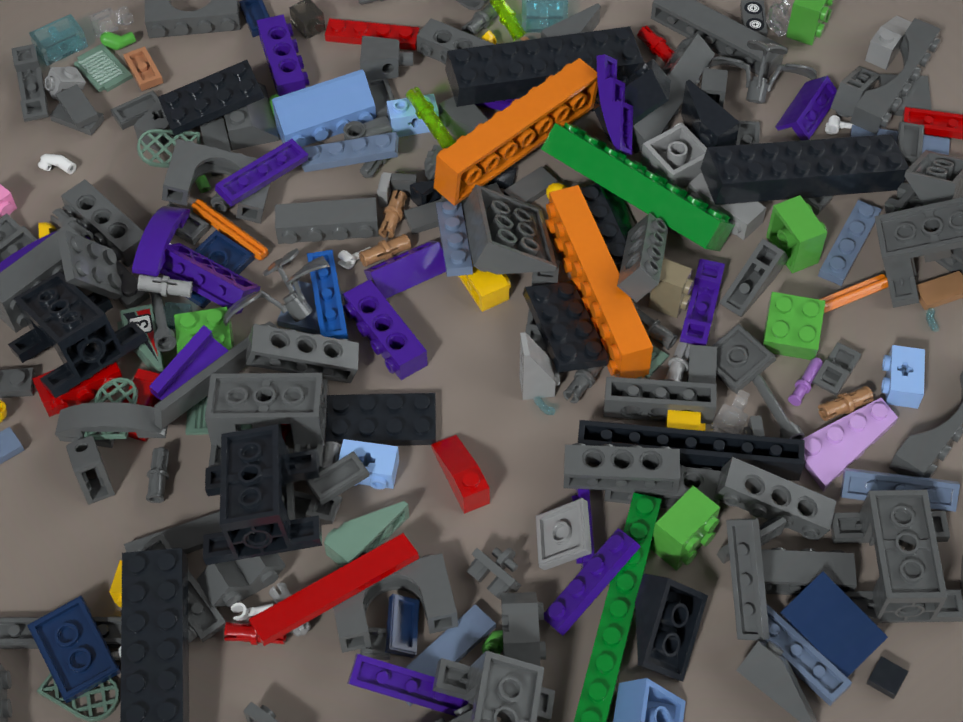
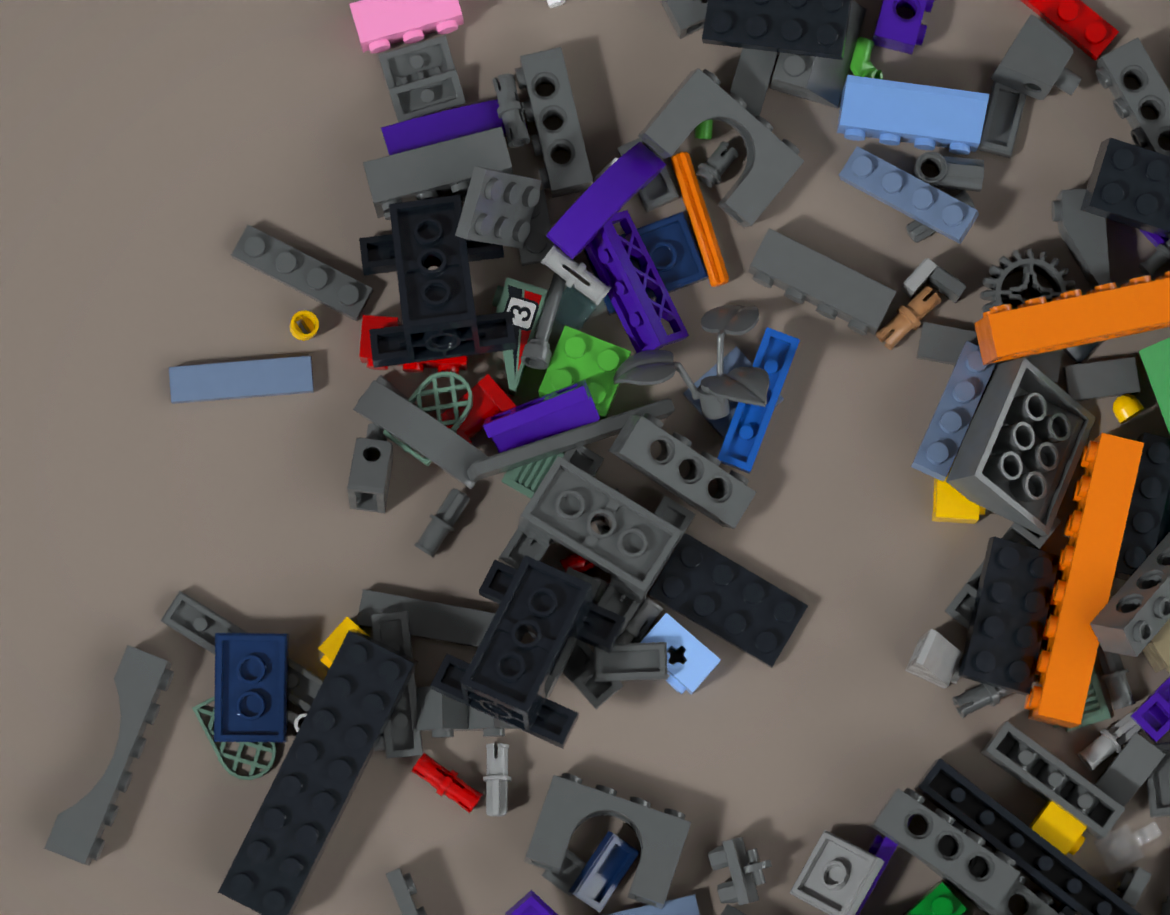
camera: 30 degrees right, 25 degrees up
(45, 228) = (479, 89): yellow hinge -> none
(162, 164) = (691, 29): sand green window -> none
(247, 612) = (458, 753): white hand -> none
(261, 172) = (777, 176): dark purple plate -> none
(333, 589) = (553, 797): red tile -> none
(348, 260) = (815, 352): white hand -> none
(364, 533) = (617, 741): sand green slope -> none
(384, 250) = (867, 367): medium nougat pin -> none
(402, 361) = (805, 428): dark purple brick -> none
(403, 117) = (1021, 182): light blue brick -> none
(407, 269) = (877, 409): dark purple panel -> none
(424, 193) = (963, 313): black slope -> none
(425, 111) = (1031, 220): clear neon green pin -> none
(462, 473) = (776, 723): red slope -> none
(544, 407) = (922, 698): clear light blue leg -> none

